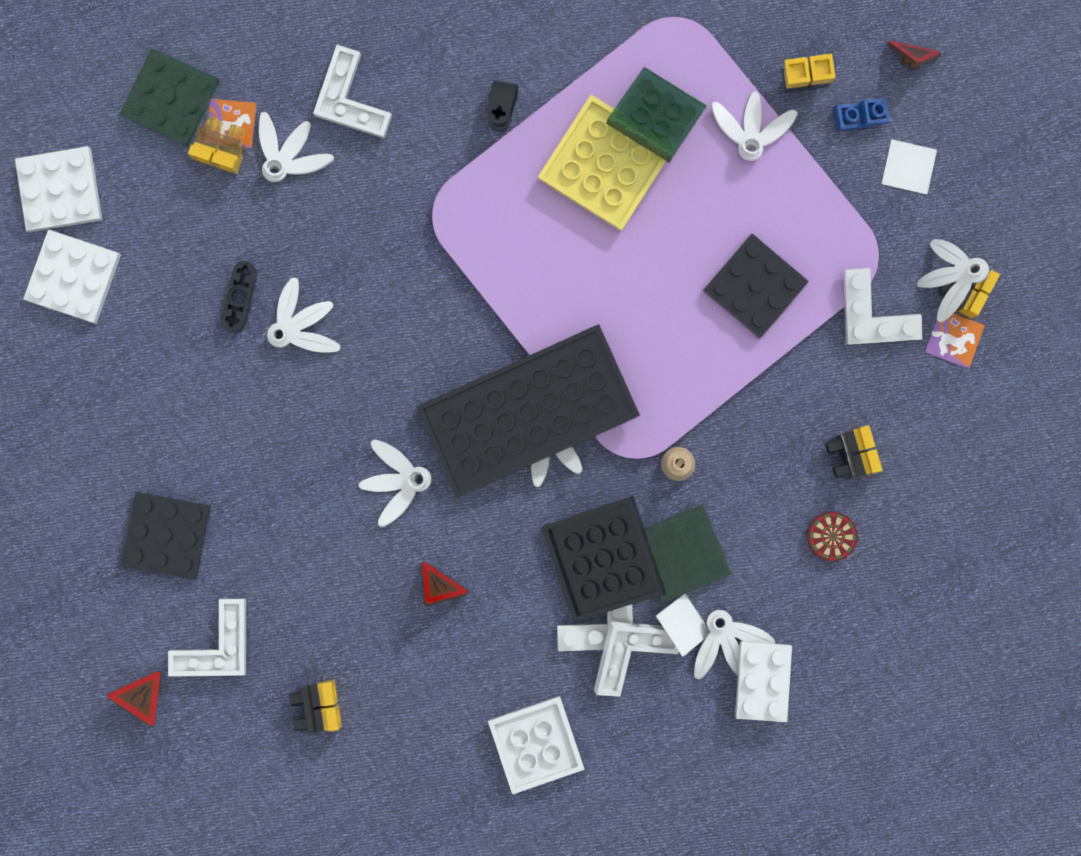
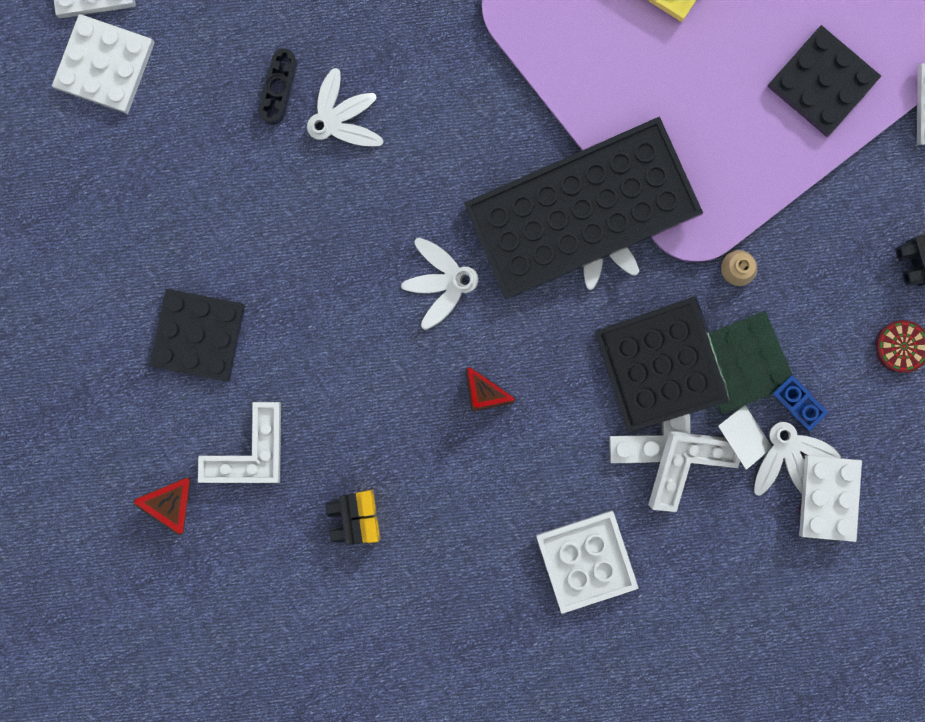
camera: 10 degrees right, 0 degrees up
(735, 591) = (800, 403): none -> blue slope

